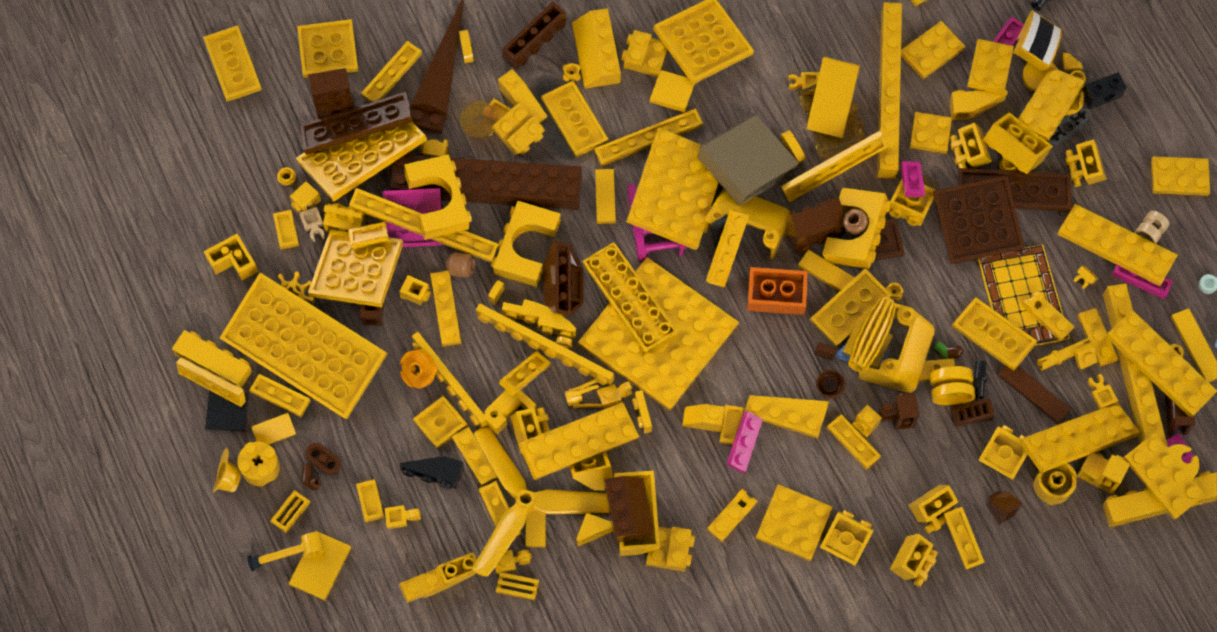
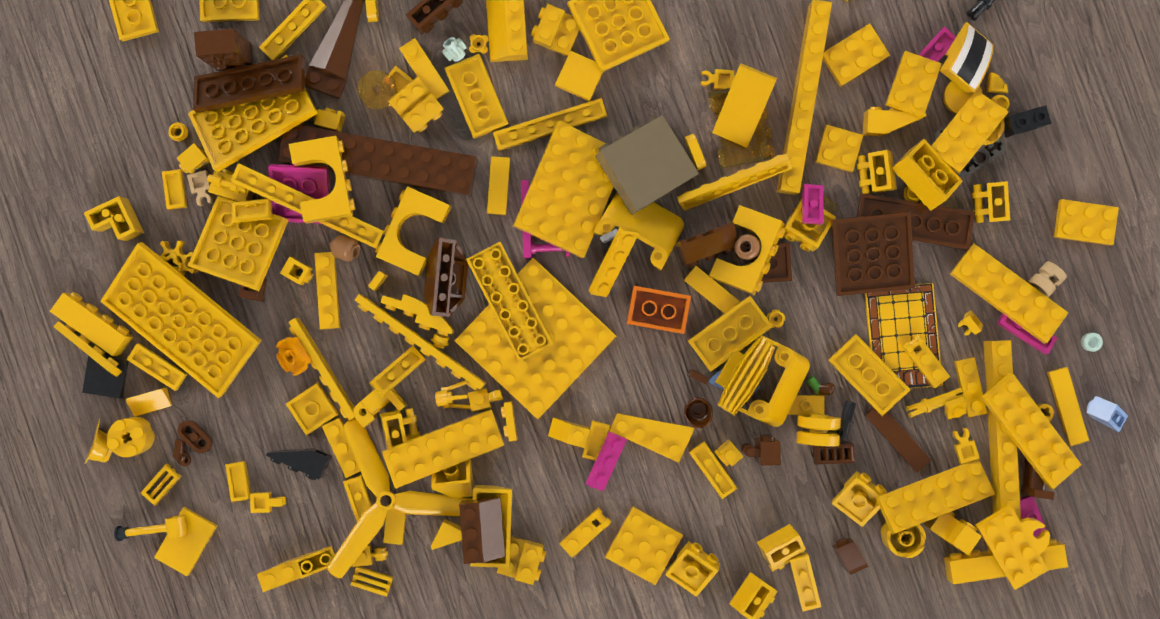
camera: 10 degrees right, 20 degrees up
(549, 77) = (454, 49): none -> light aqua gear

